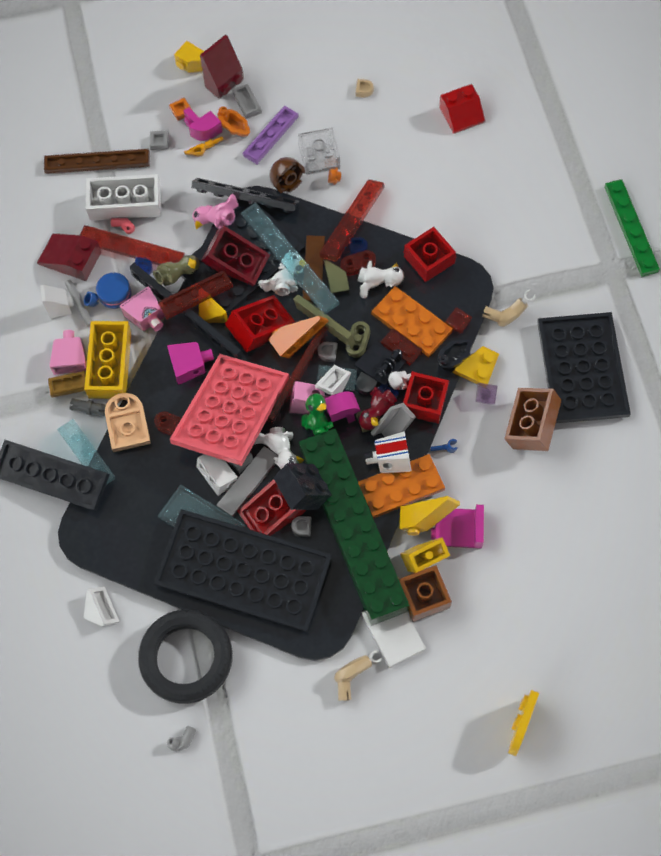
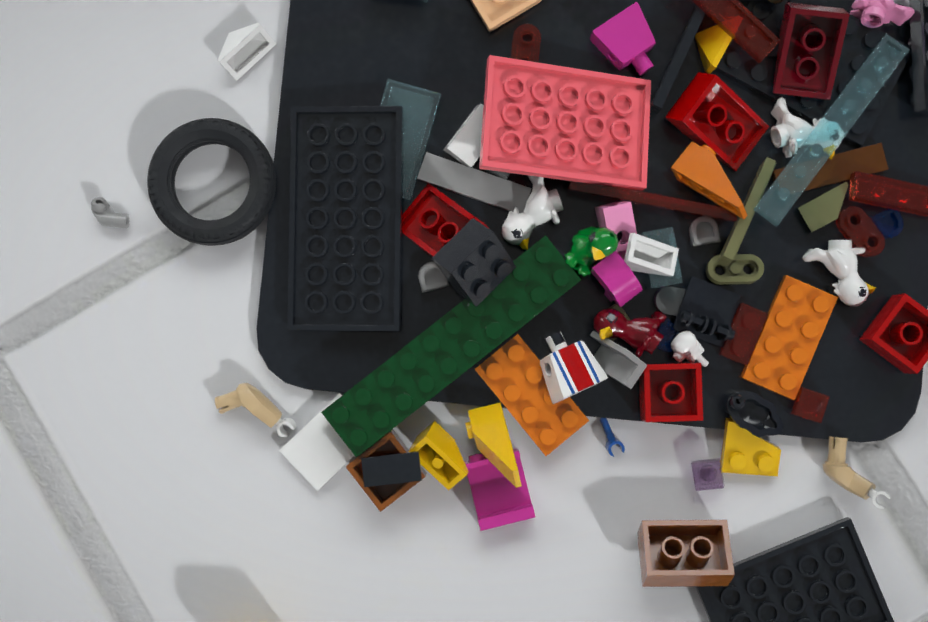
camera: 75 degrees right, 20 degrees up
(424, 584) = (391, 469): none -> black tile

